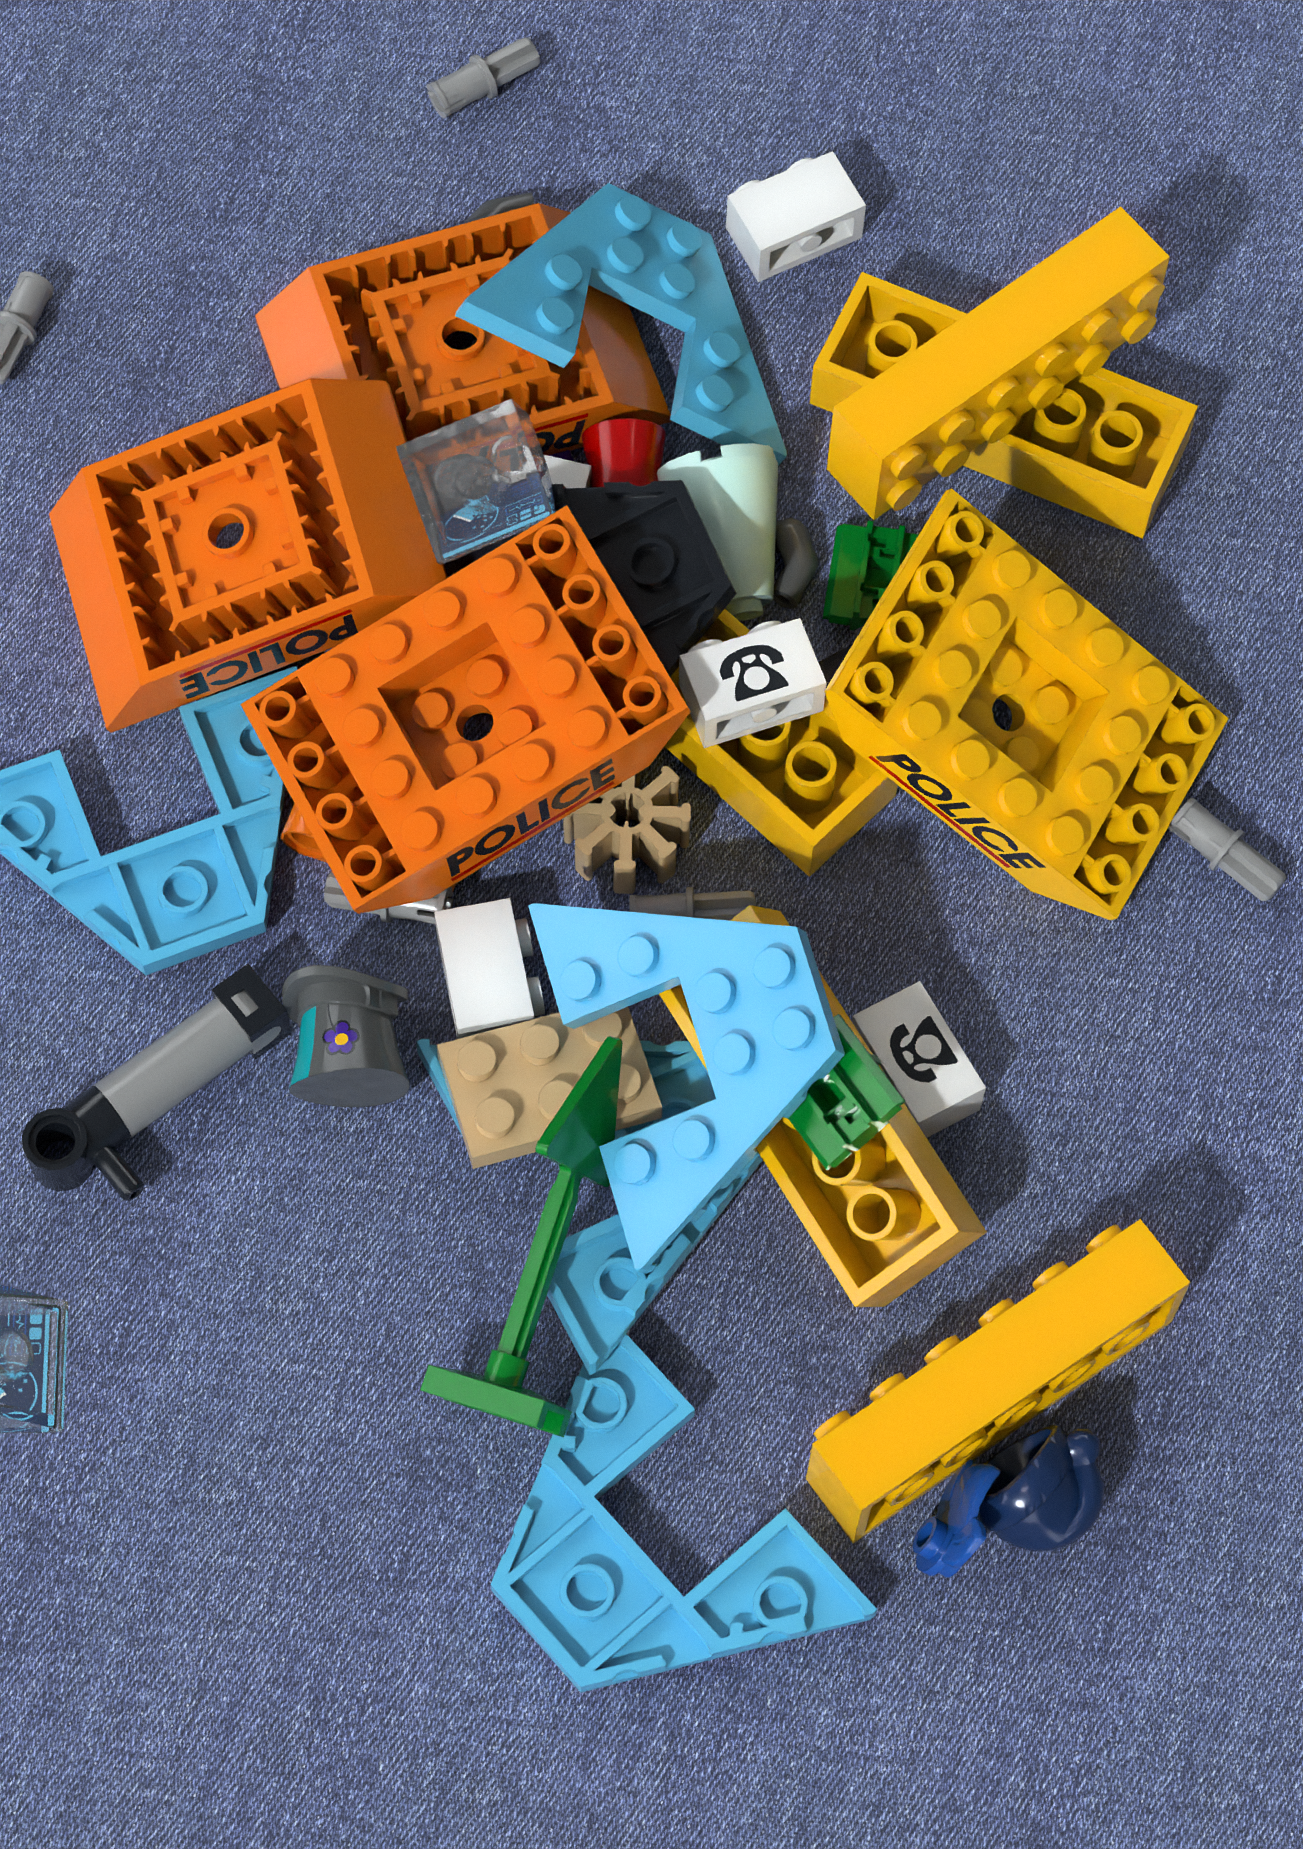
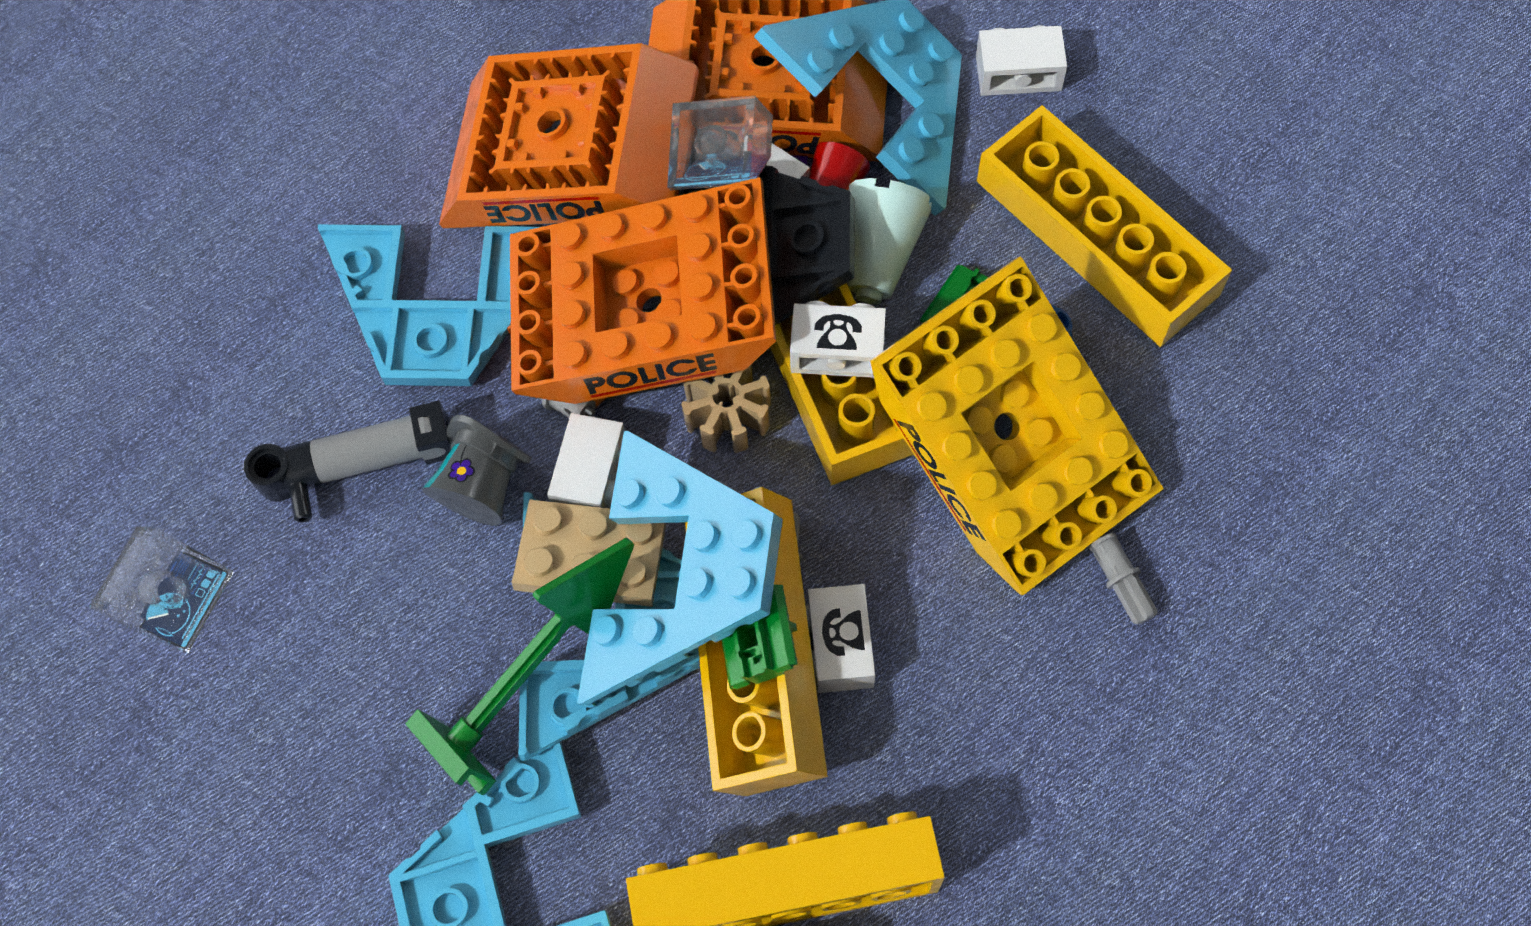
camera: 30 degrees right, 0 degrees up
(697, 905) = (739, 475): light grey axle -> none
(800, 562) = (922, 277): dark grey arm -> none
(997, 364) = (1100, 188): yellow brick -> none

